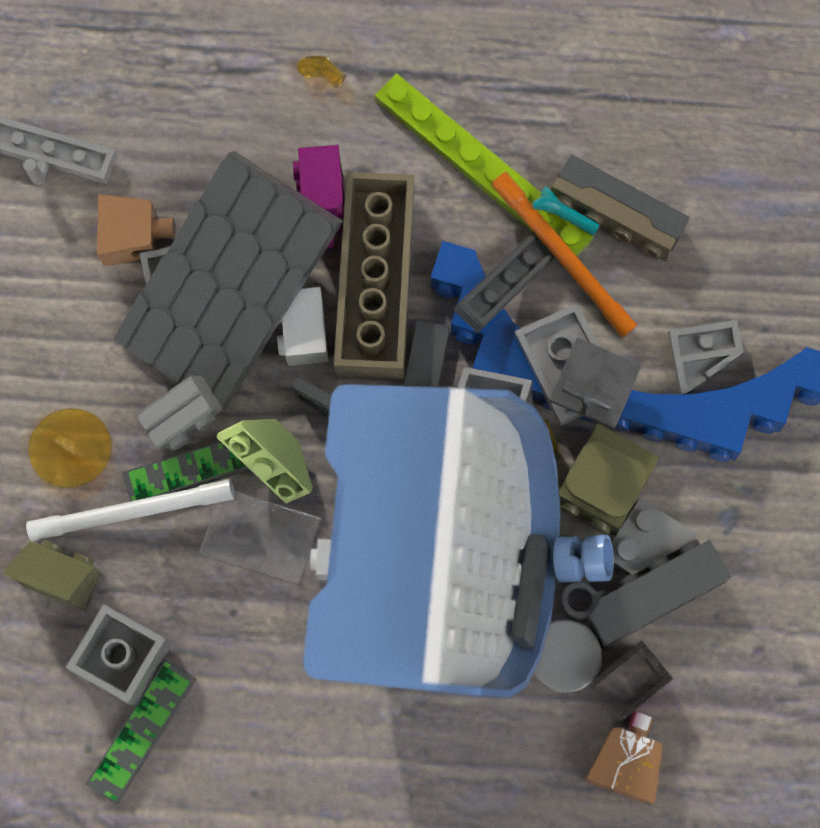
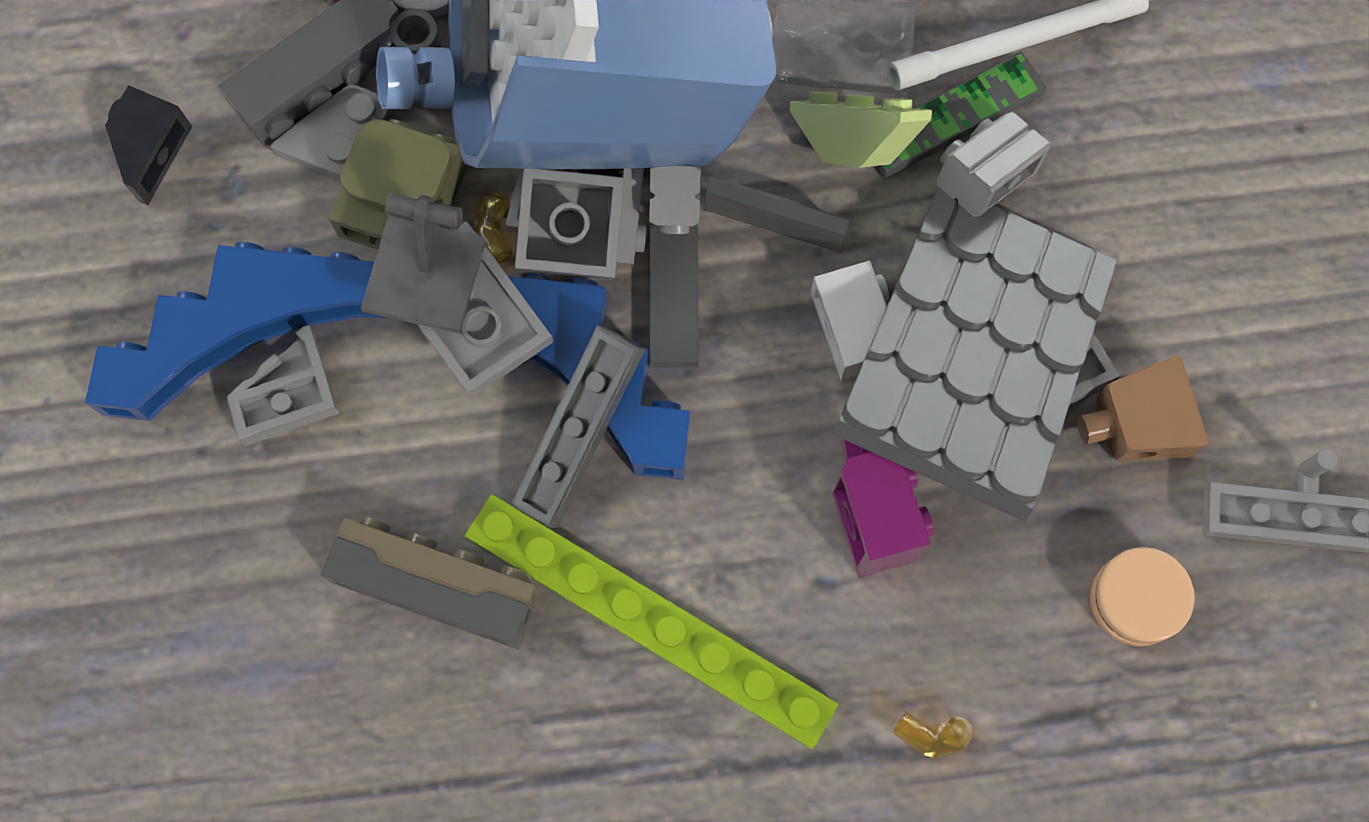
camera: 165 degrees right, 0 degrees up
(69, 448) = (1126, 112): clear yellow shield -> none
(169, 122) = (1142, 597): none -> light nougat head
(374, 276) = (772, 406): dark tan brick -> none
(517, 199) = (583, 553): orange piece -> none
(549, 203) = (531, 556): teal piece -> none
(792, 557) = (145, 139): none -> black slope

